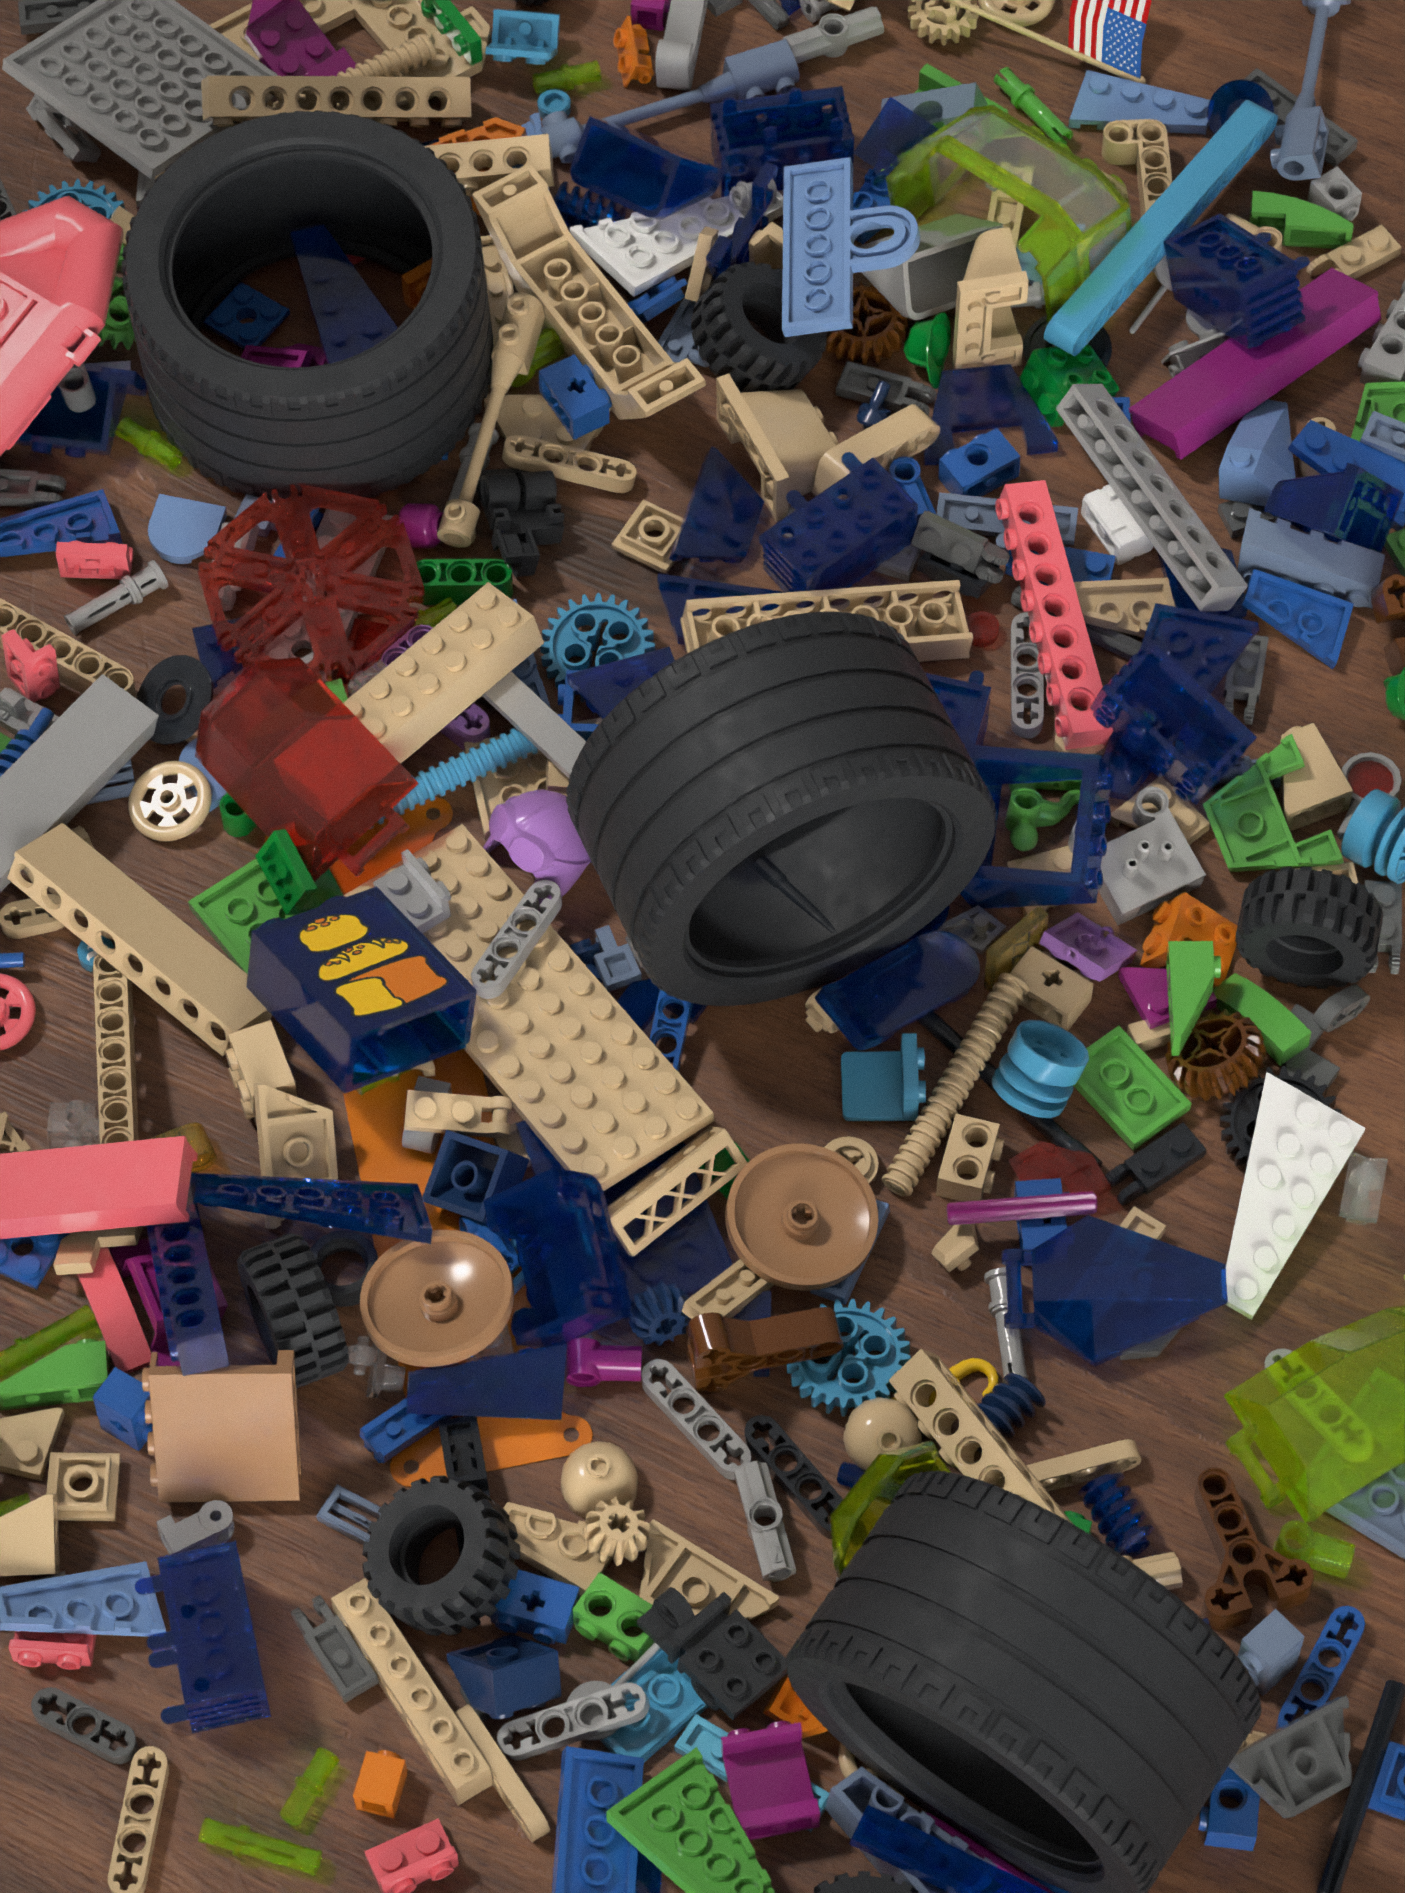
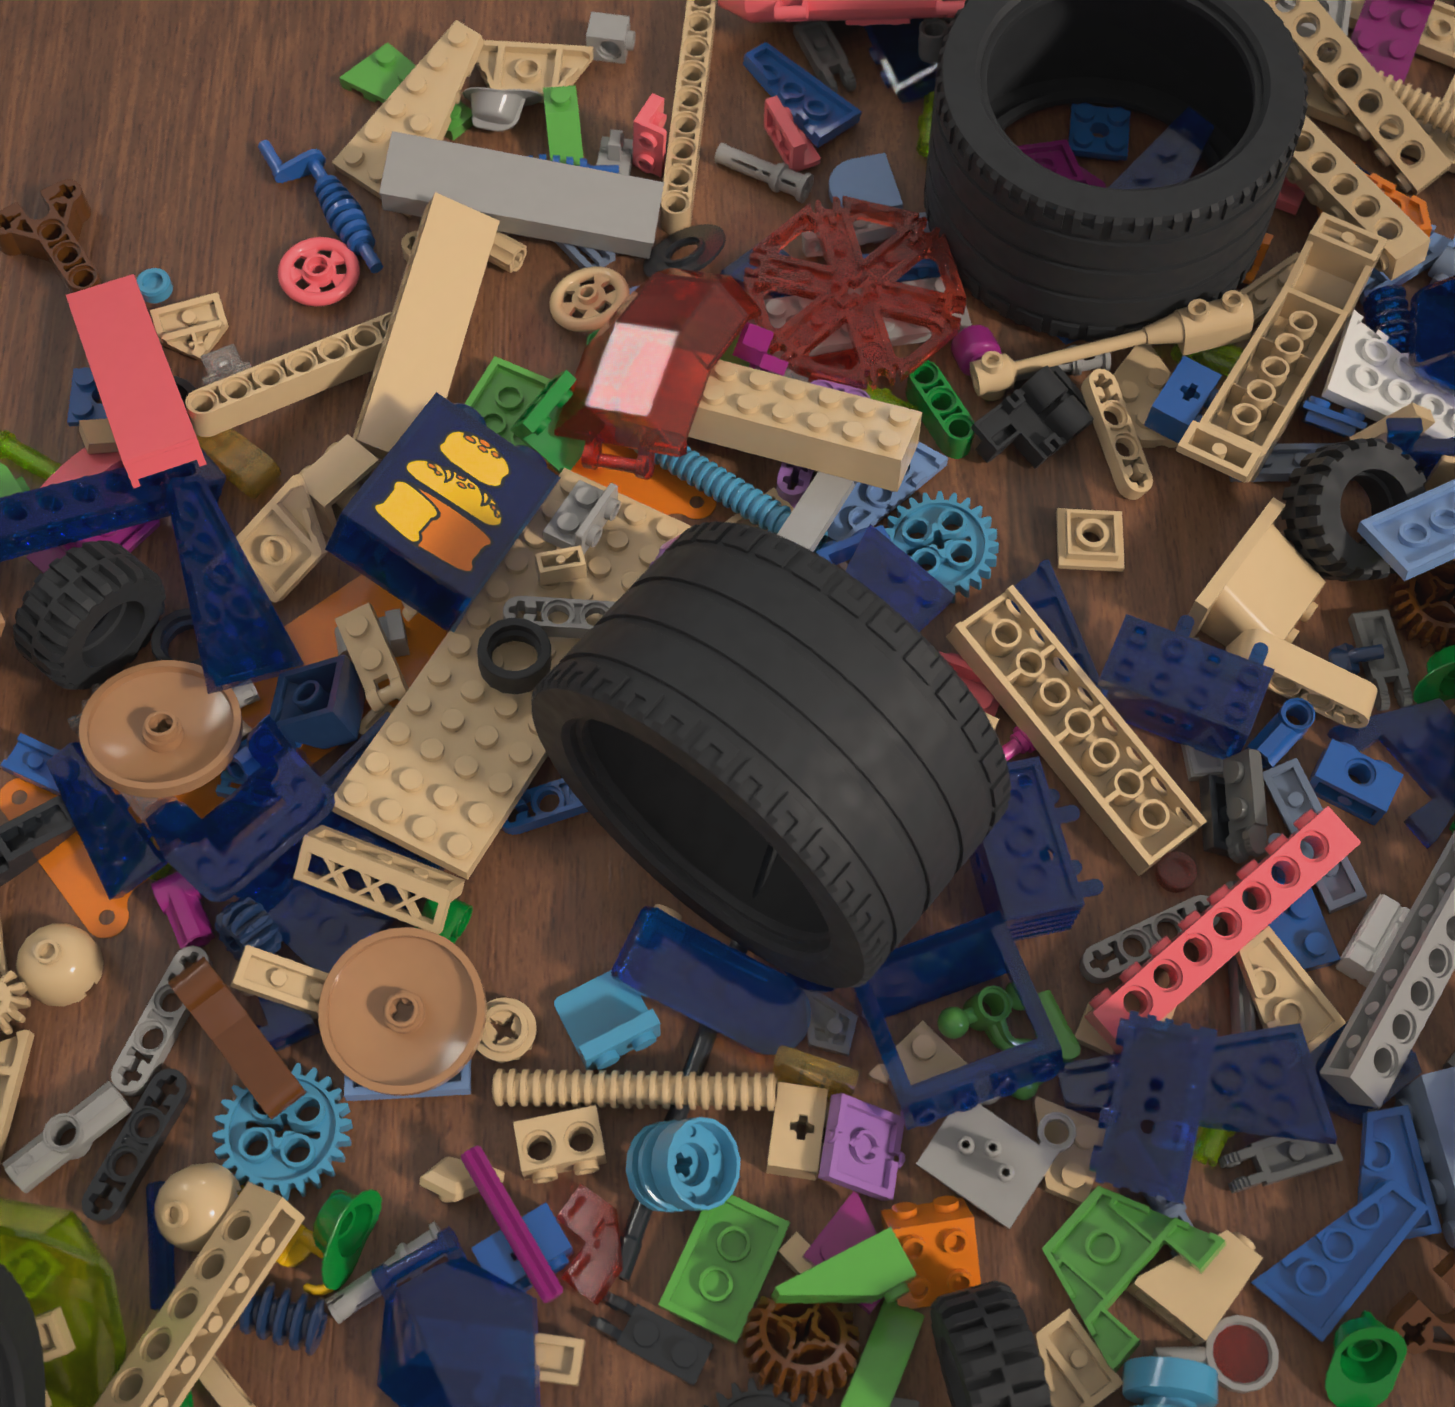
camera: 60 degrees right, 5 degrees up
(345, 684) = (753, 348): none -> magenta bracket
(457, 928) = (560, 565): none -> tan piece
(531, 972) = (507, 631): none -> black tyre
(719, 514) = (1144, 579): clear blue wing -> none
(952, 1342) = (342, 1232): none -> green piece
(1340, 679) = (1337, 1264): none -> blue wing

